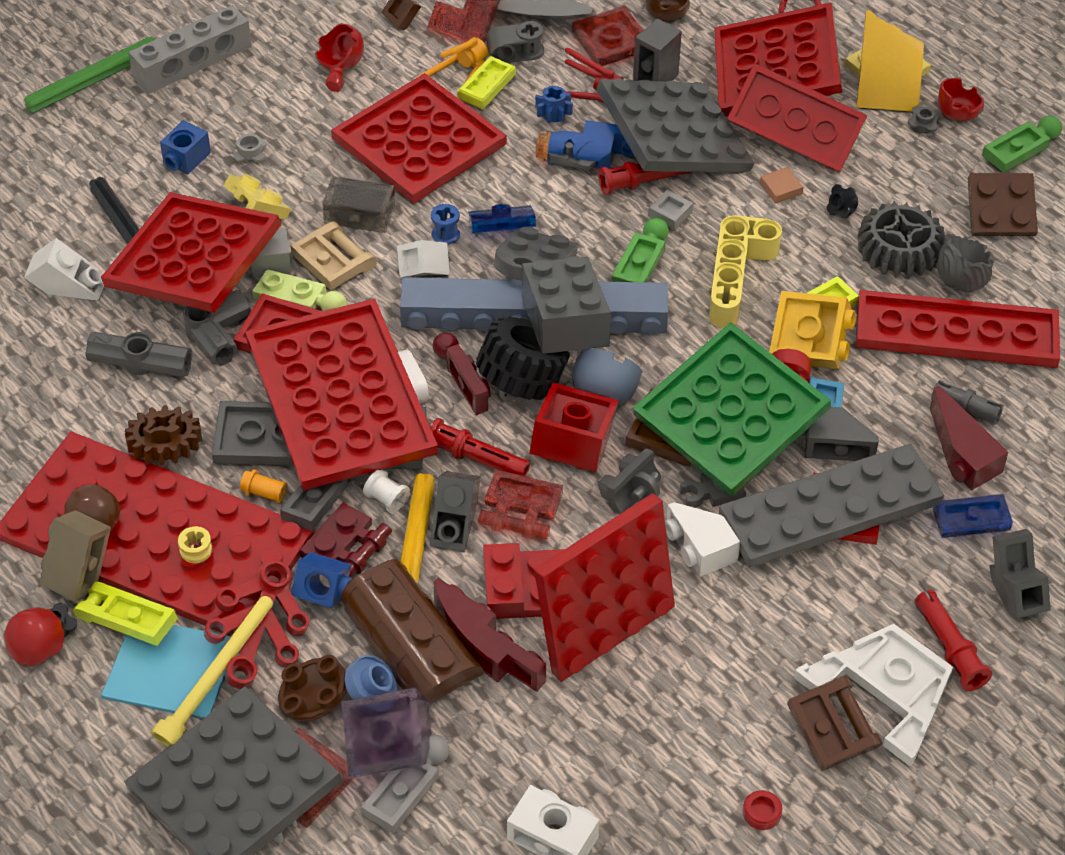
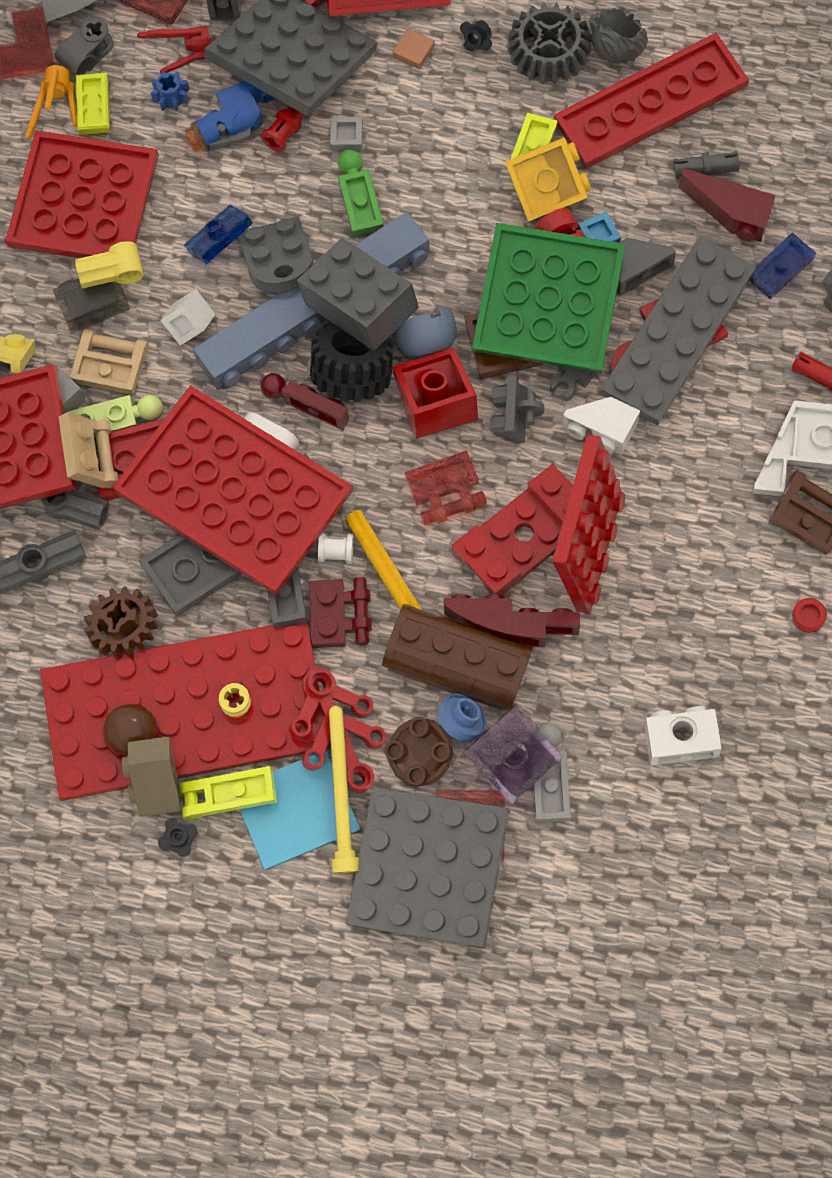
camera: 30 degrees left, 20 degrees up
(33, 636) = (175, 861): red hair -> none
(242, 288) = (80, 450): none -> tan plate
(262, 486) = (235, 610): light orange pin -> none
(308, 583) = (344, 656): blue brick -> none
(396, 184) = (118, 265): none -> light yellow piece
(445, 224) = (170, 268): blue bush -> none
(454, 510) = (401, 527): dark grey slope -> none
(463, 444) = (358, 466): red pin -> none
(739, 240) = (444, 162): light yellow beam -> none

